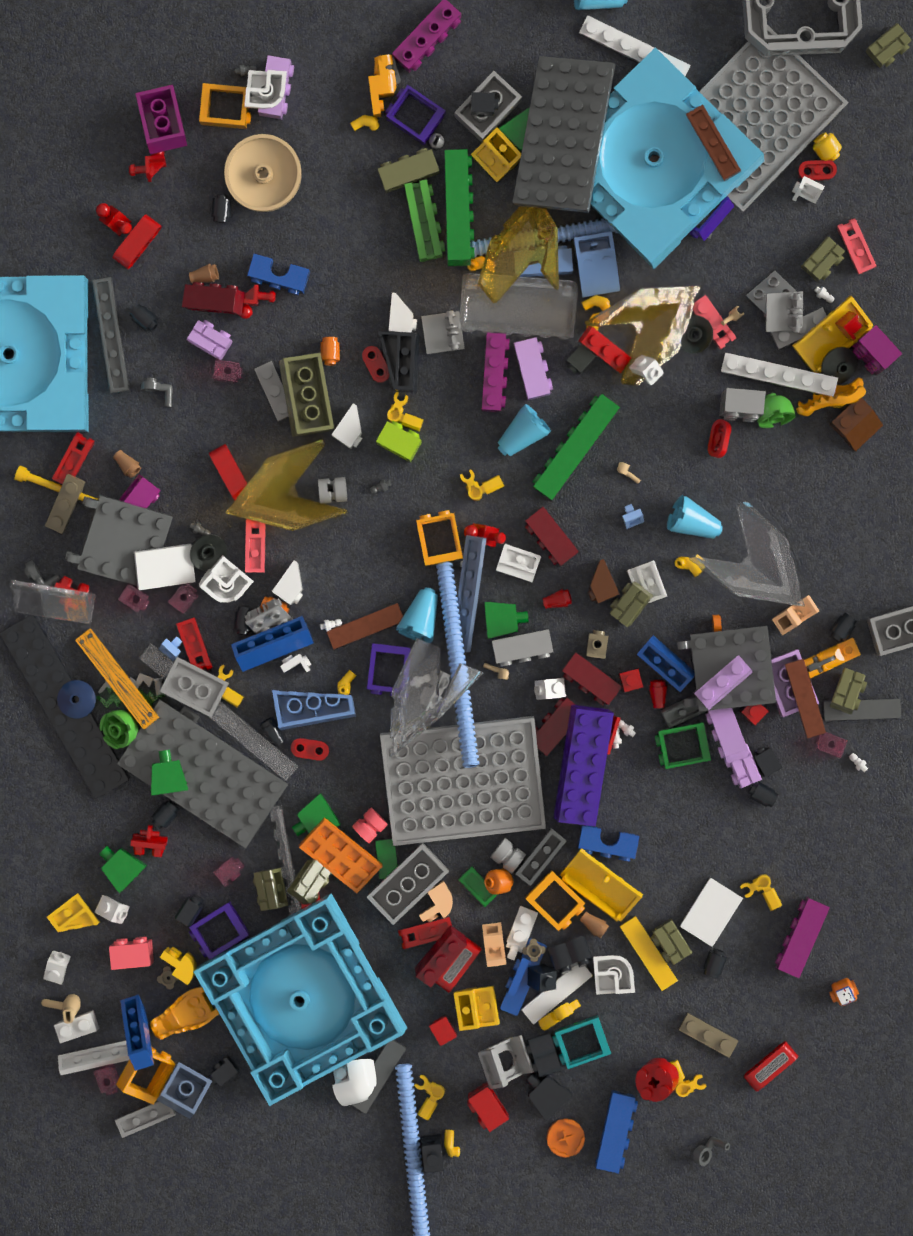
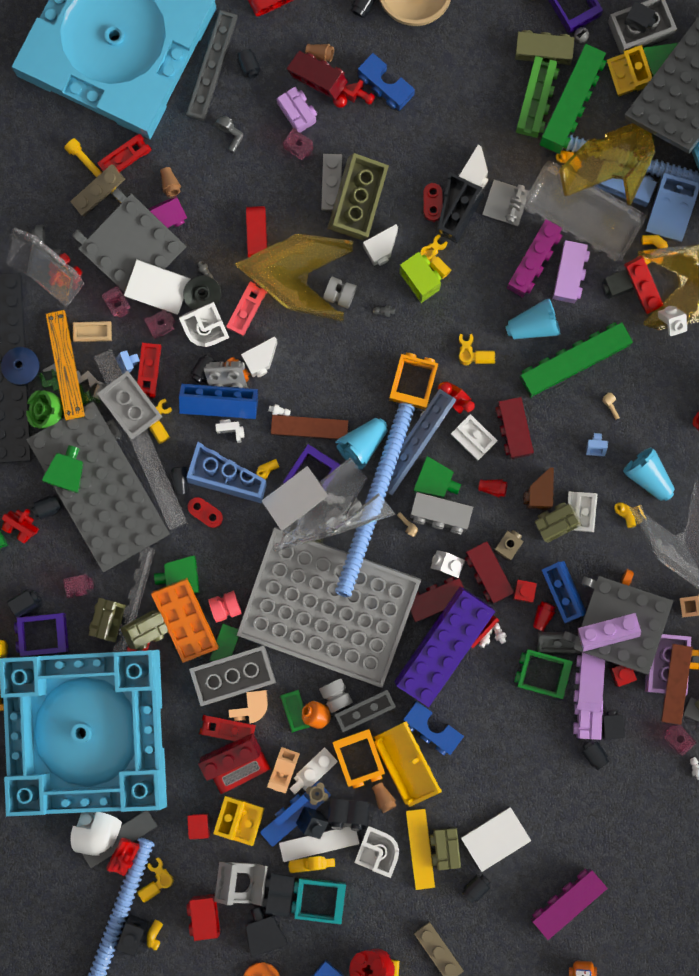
camera: 25 degrees right, 5 degrees down
(125, 635) = (92, 331): none -> tan tile
(330, 350) = (398, 170): orange brick -> none
(385, 699) = (294, 498): none -> white sticker
(390, 1089) = (123, 856): none -> red hips
(763, 883) = (556, 836): yellow bar -> none

